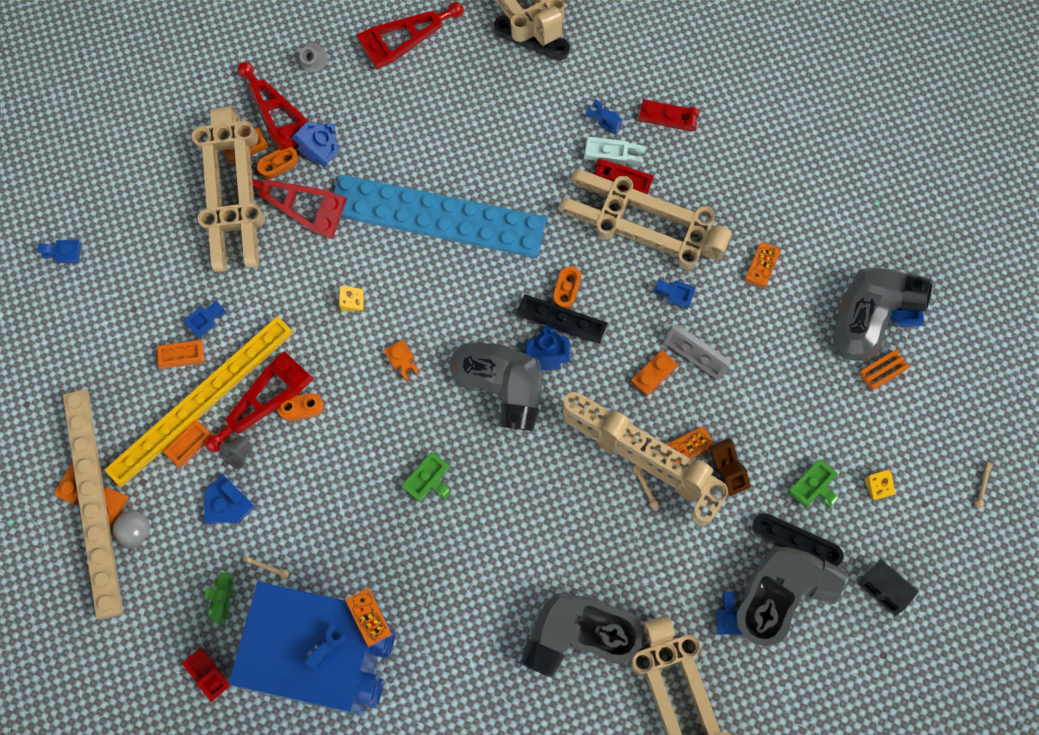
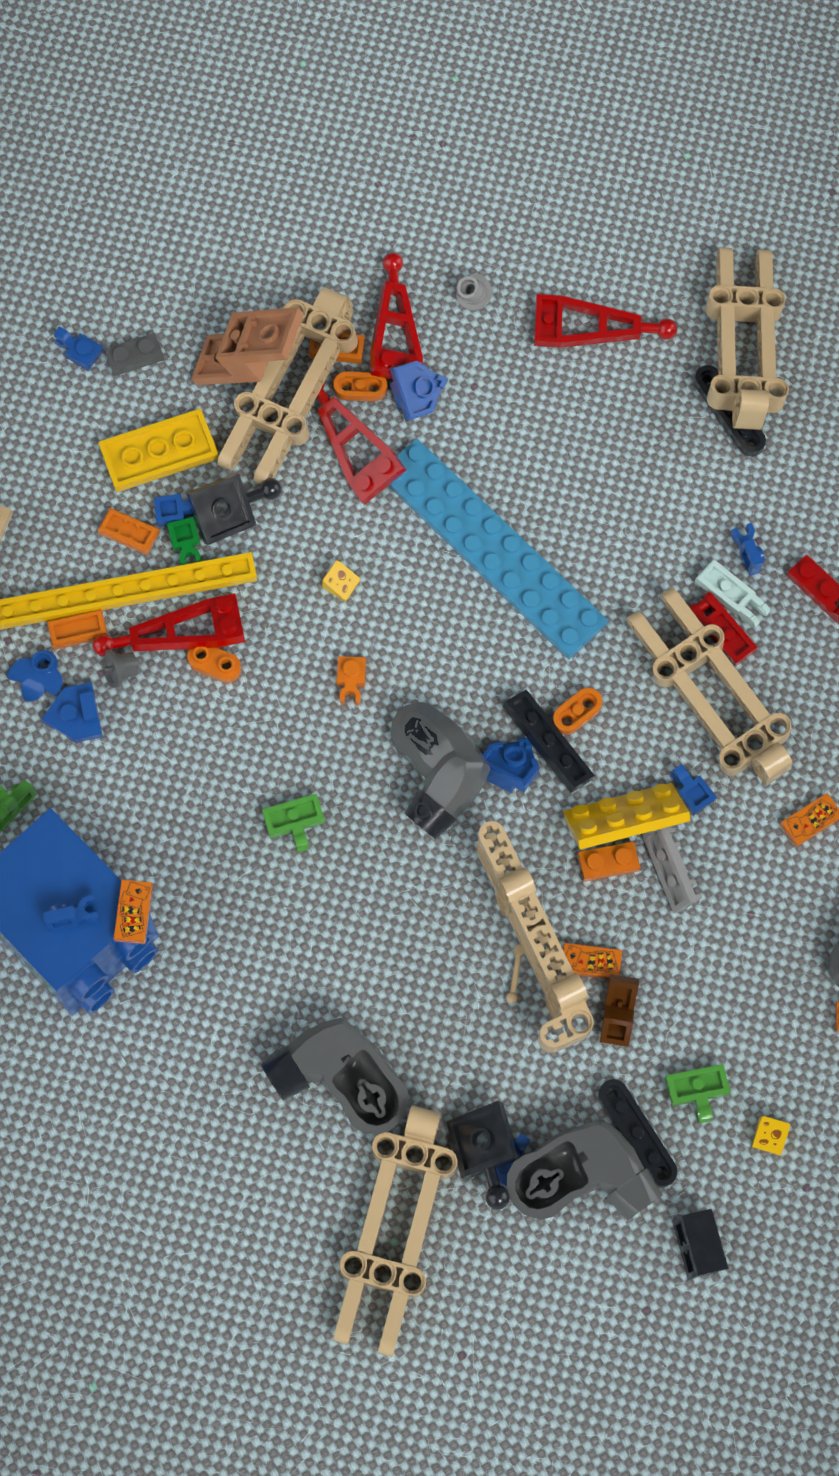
camera: 30 degrees right, 0 degrees up
(105, 232) = (134, 354): none -> dark grey plate
(165, 287) = (158, 450): none -> yellow plate
(180, 497) = (35, 679): none -> blue plate
(183, 177) = (247, 346): none -> nougat bracket
(224, 335) = (184, 538): none -> green plate
(251, 295) = (239, 513): none -> black plate
(283, 574) = (86, 822): tan hinge -> none
(647, 336) = (626, 815): none -> yellow plate
(719, 616) = (496, 1153): none -> black plate

